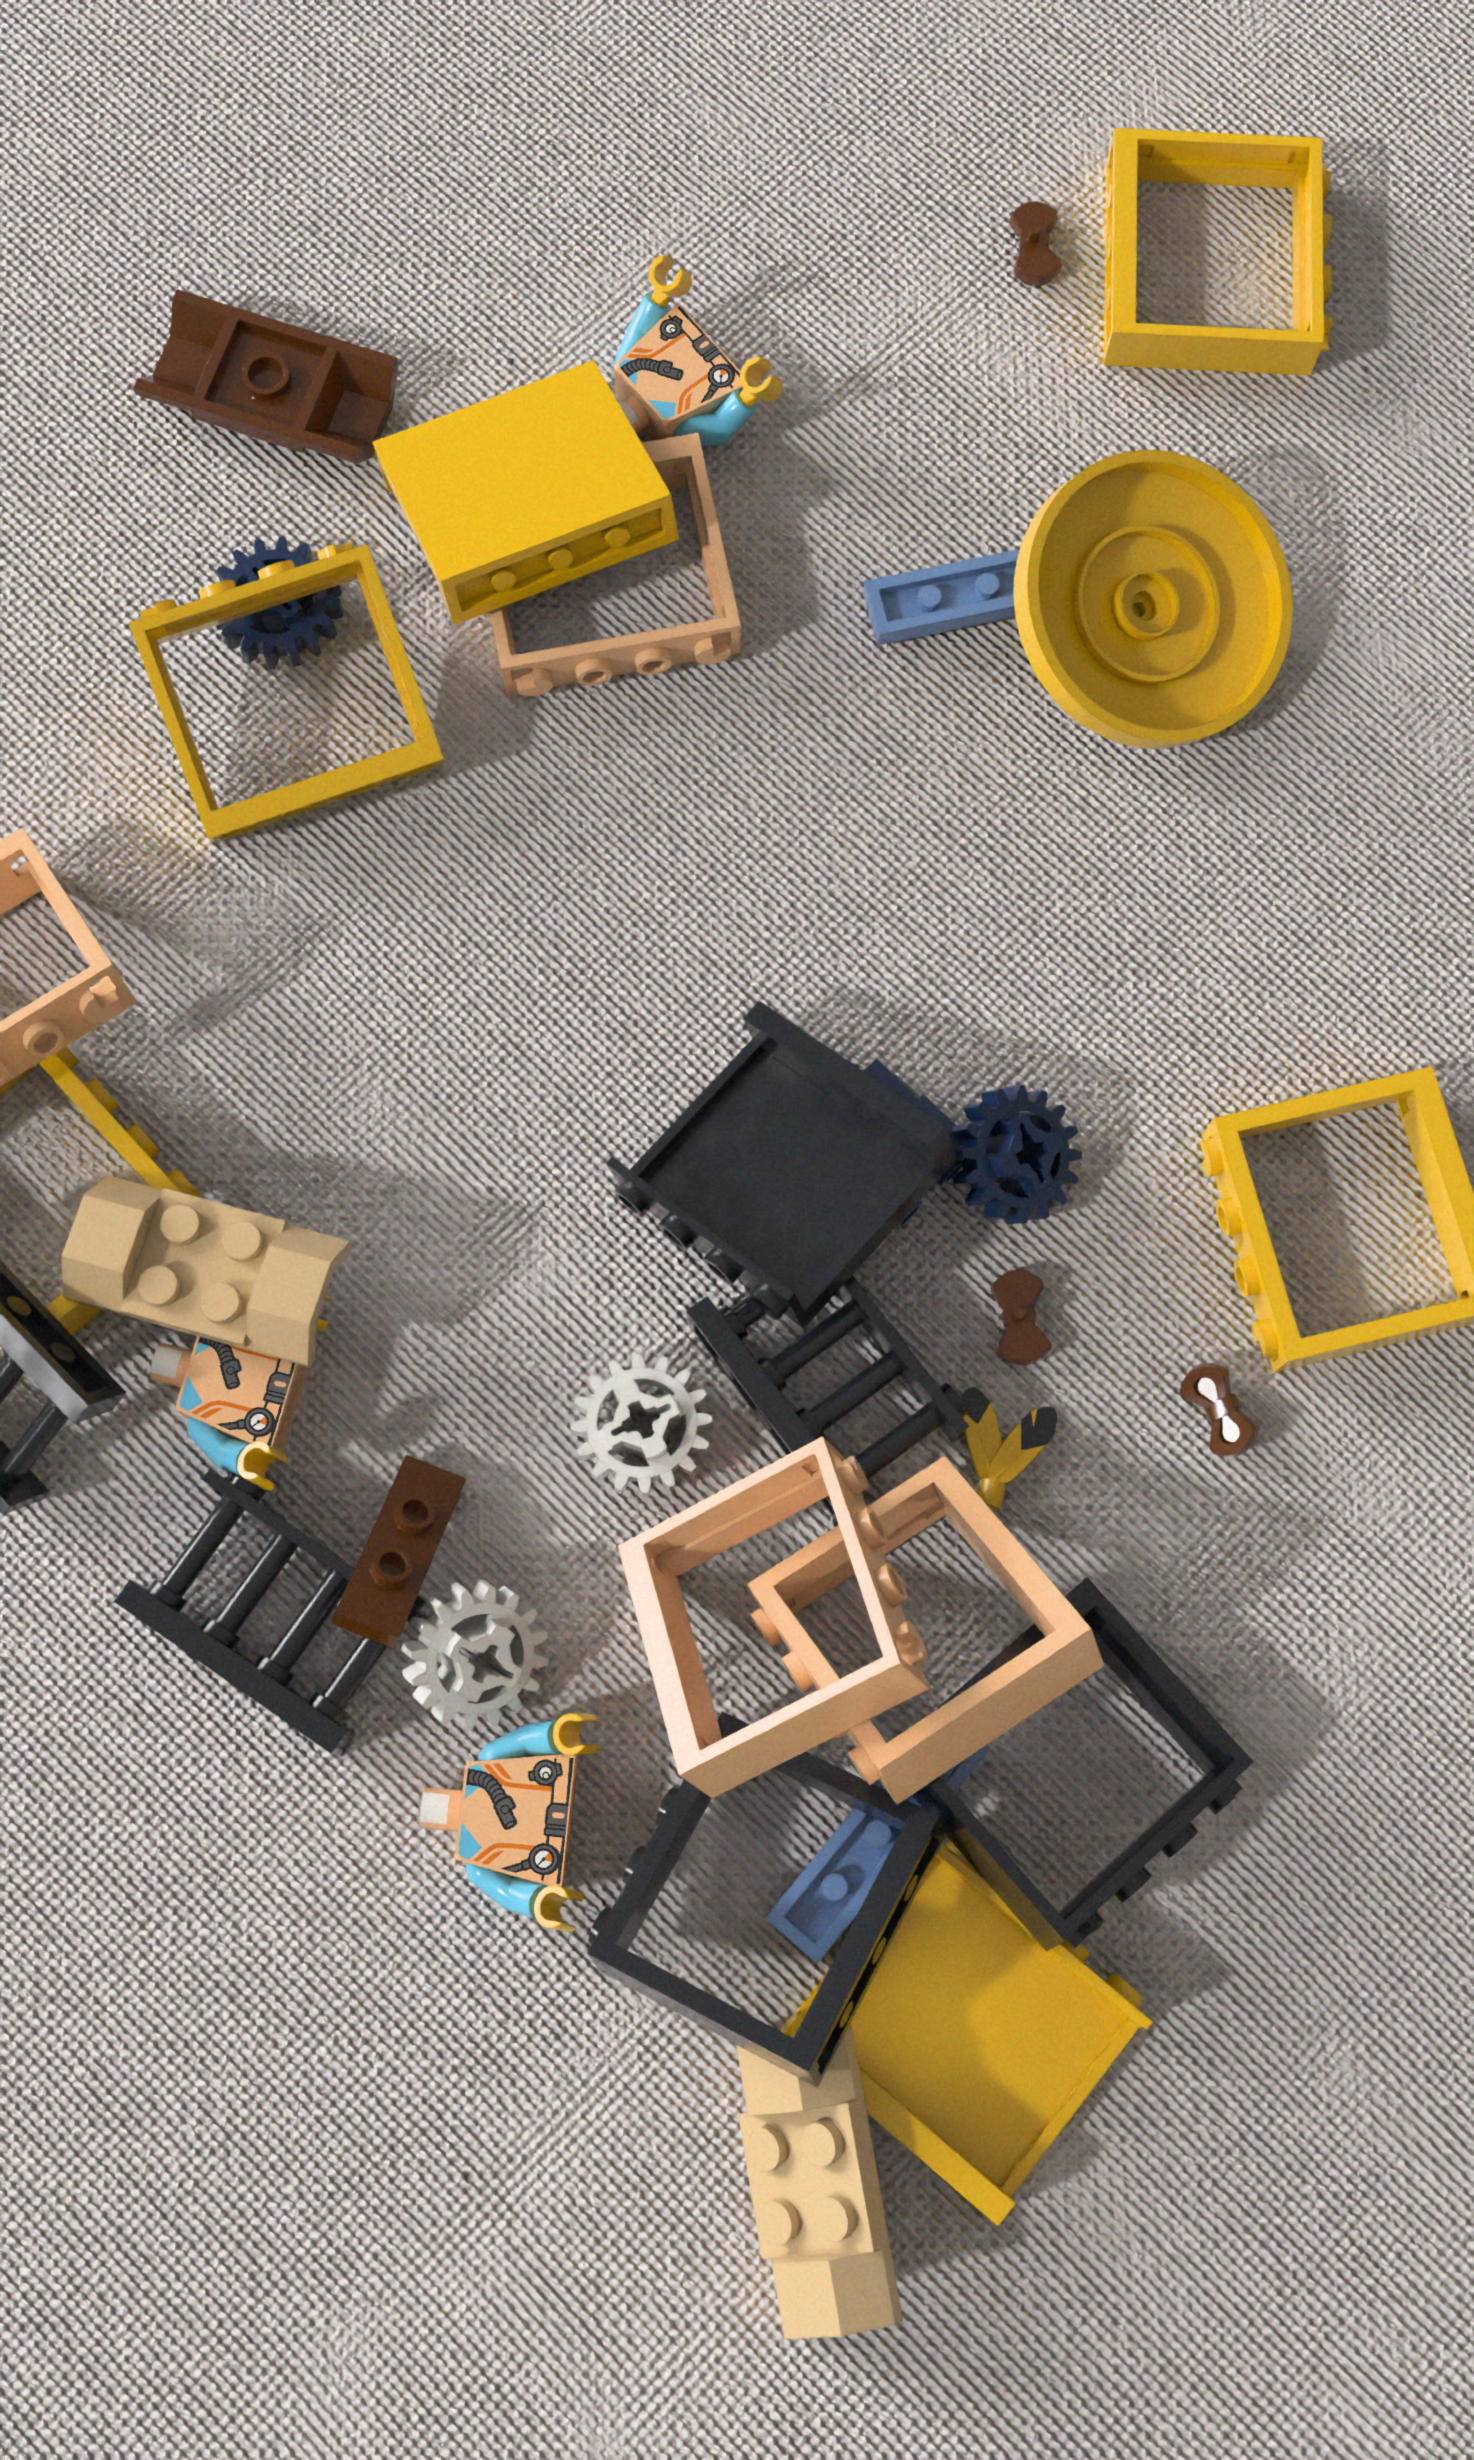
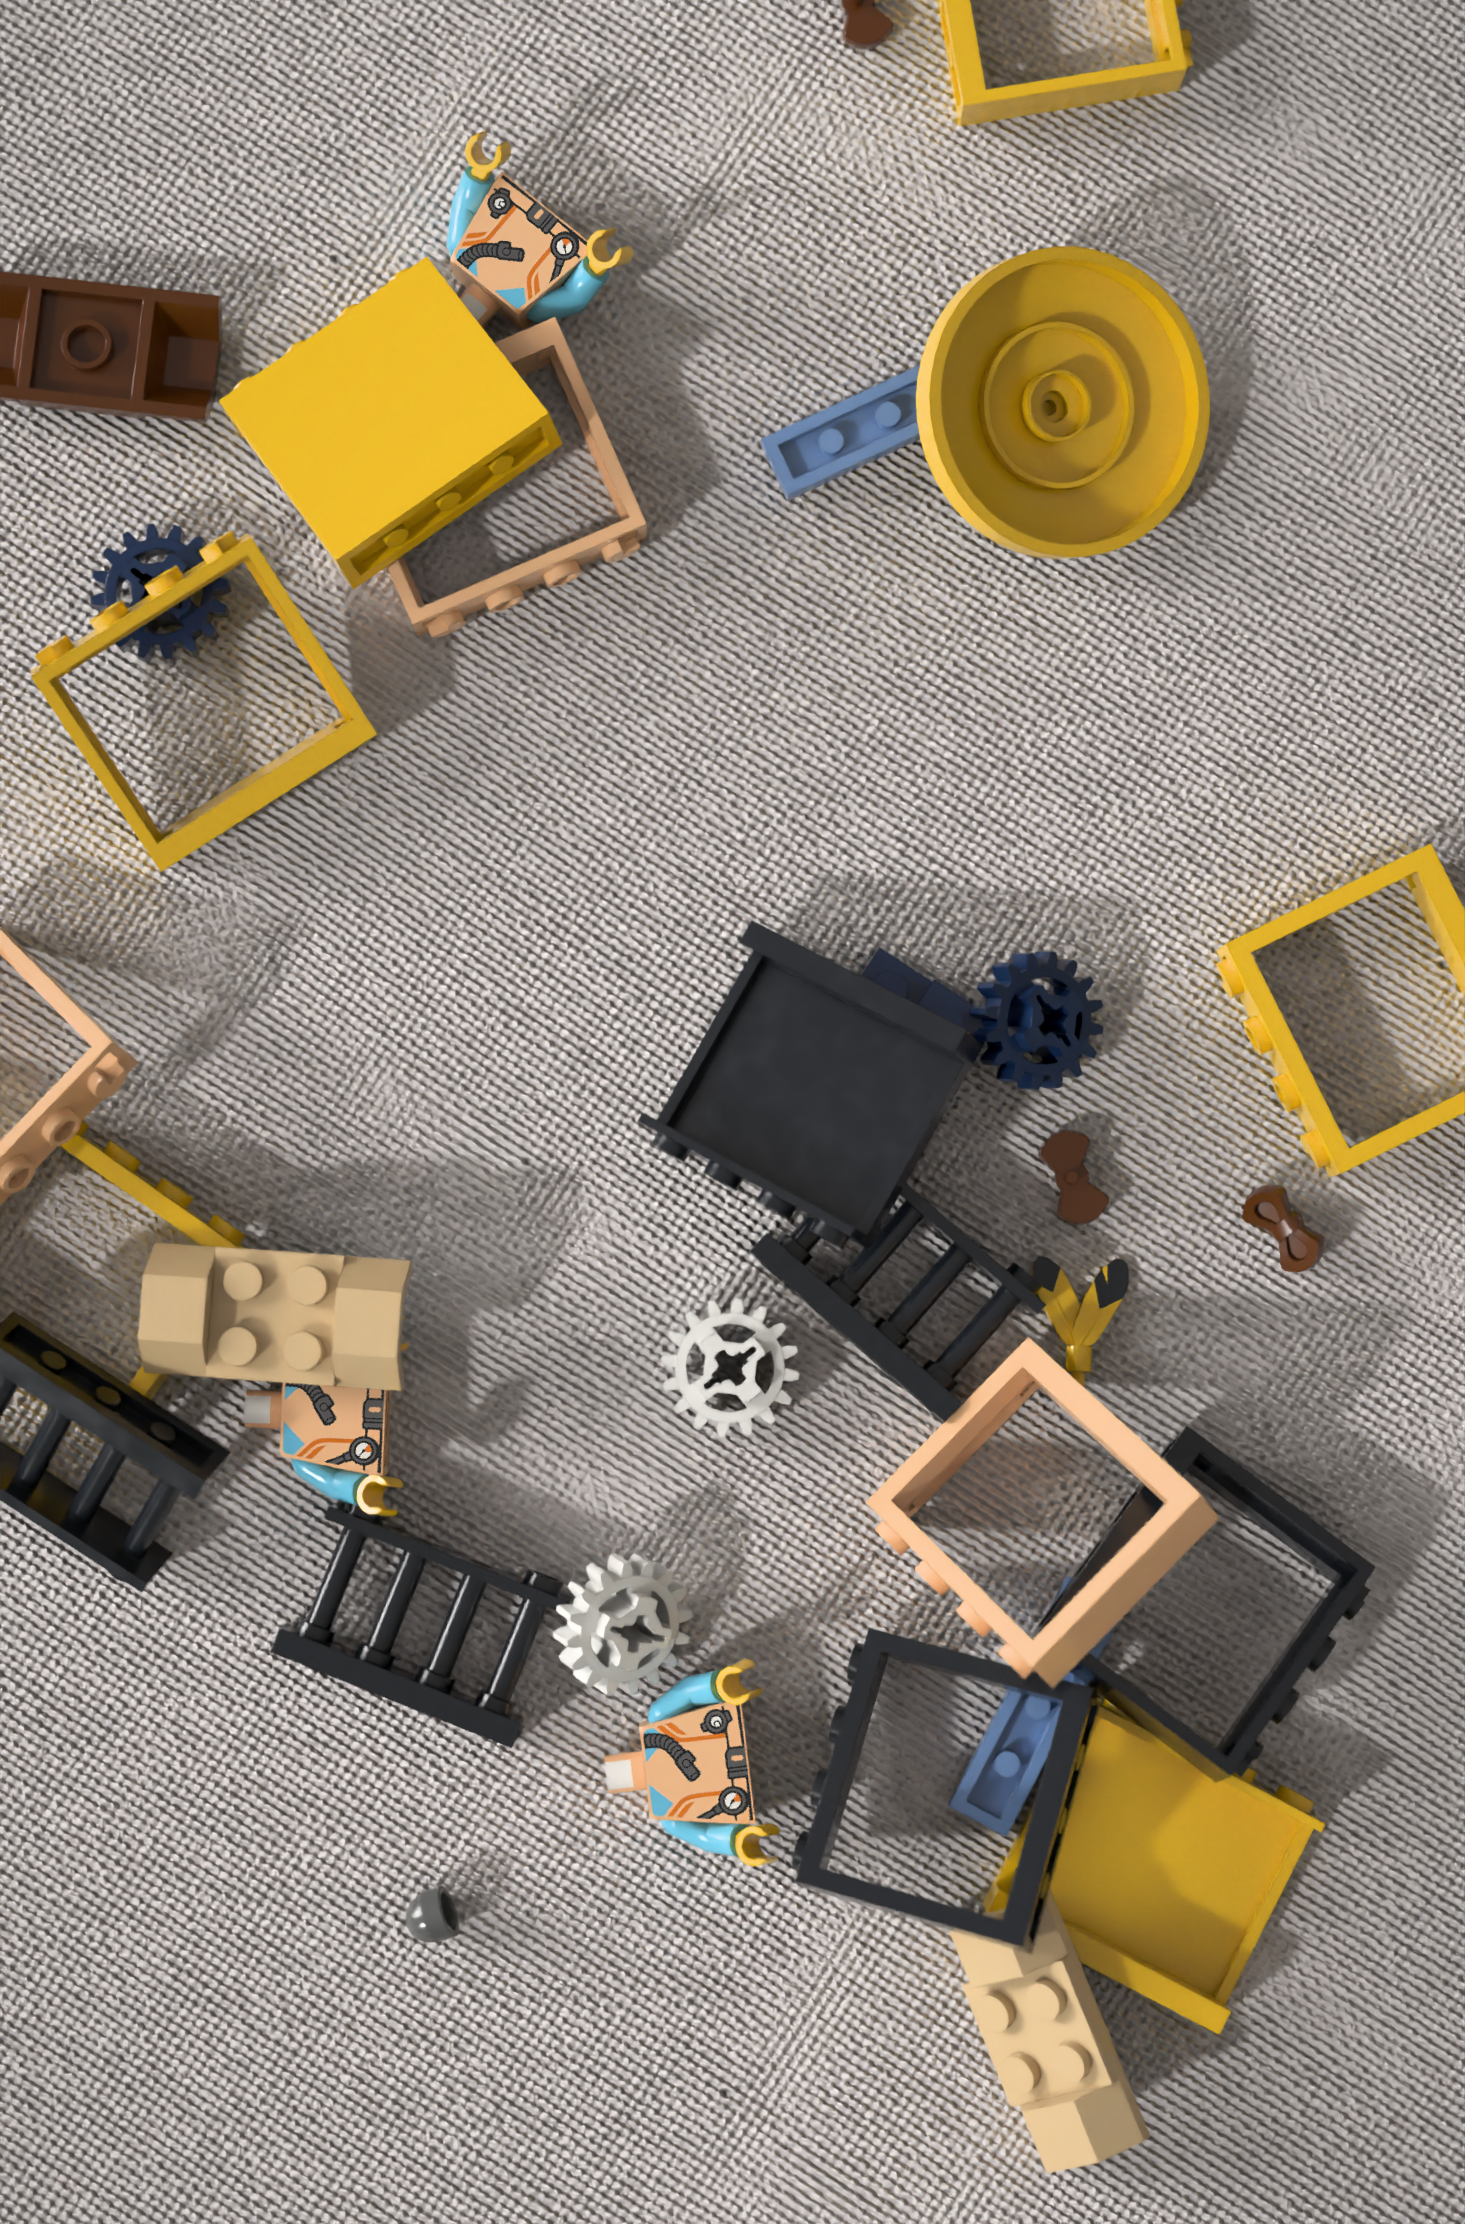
camera: 15 degrees left, 10 degrees up
(211, 1916) = (432, 1916): none -> dark grey hinge
(399, 1552) = (529, 1544): reddish brown plate -> none
(719, 1523) = (807, 1579): light nougat window -> none

